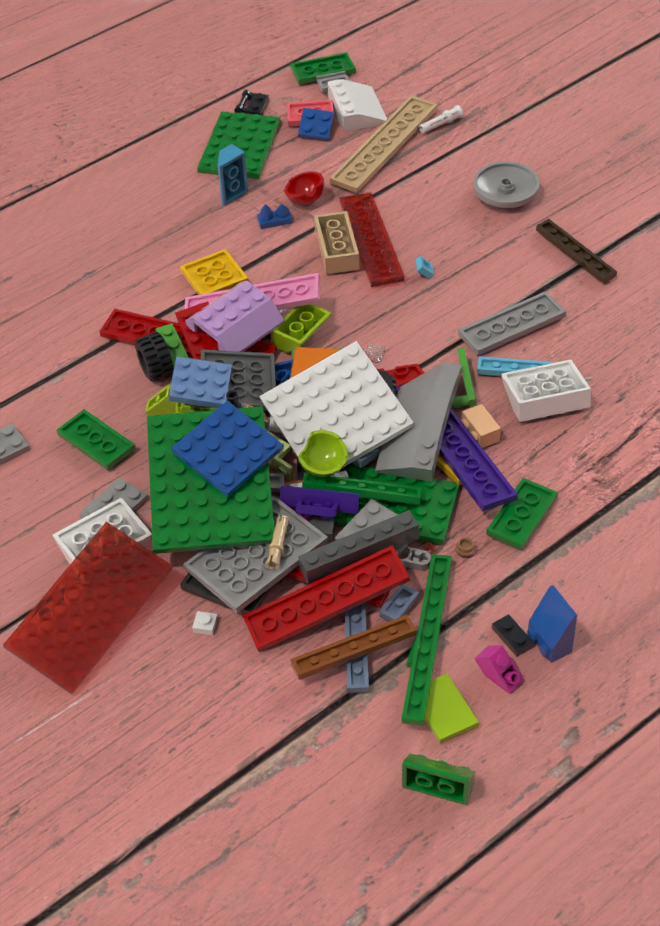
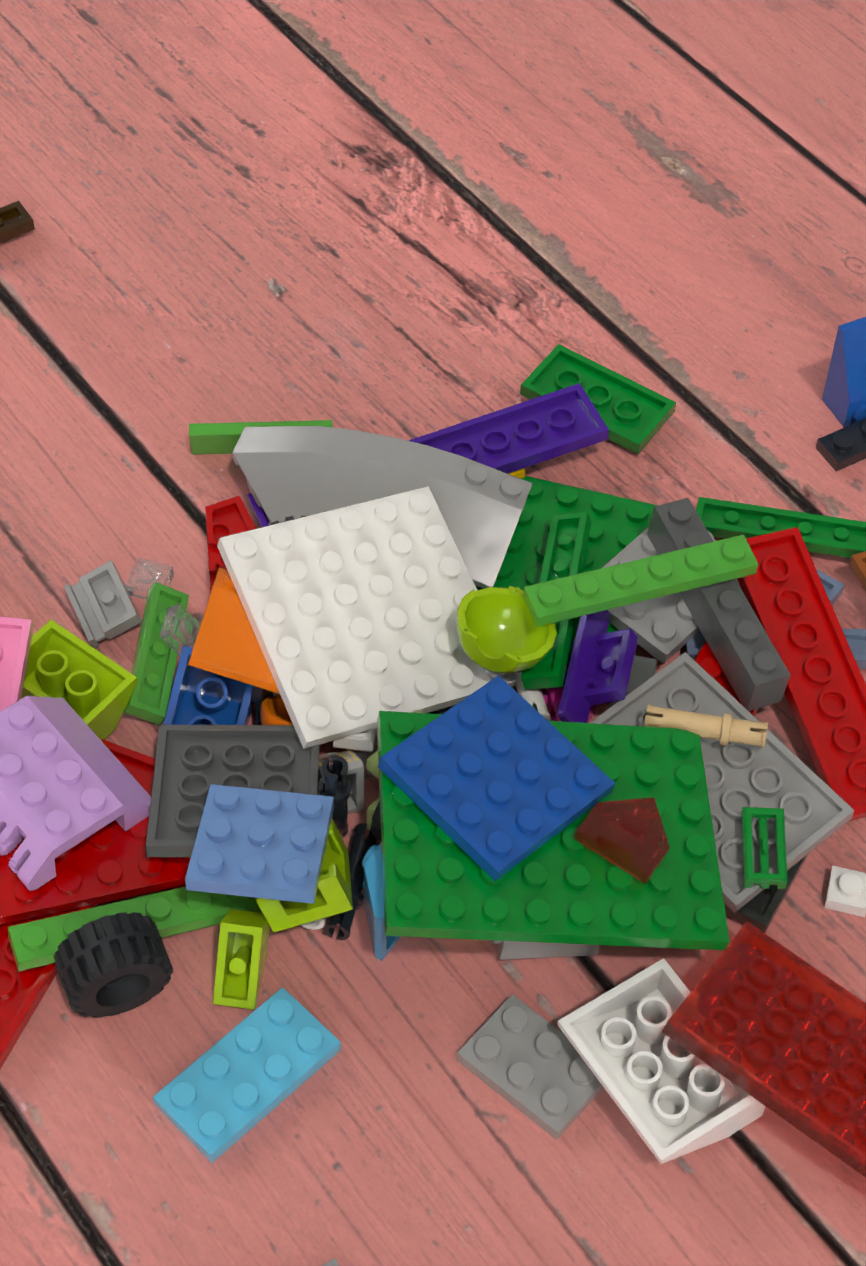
camera: 90 degrees left, 5 degrees up
(96, 439) = (332, 1107): green plate -> none
(114, 412) = (247, 1074): none -> medium azure plate
(199, 500) = (627, 835): none -> clear red plate
(213, 571) = (763, 878): none -> green tile
(354, 502) = (640, 580): none -> bright green plate
(361, 334) = (103, 604): none -> light grey plate
(465, 547) = (669, 482): medium nougat plate -> none
(481, 425) = (397, 417): light nougat brick -> none
(497, 366) = (238, 370): medium azure plate -> none
(511, 323) = (117, 363): light grey plate -> none
(546, 390) = (312, 327): white slope -> none

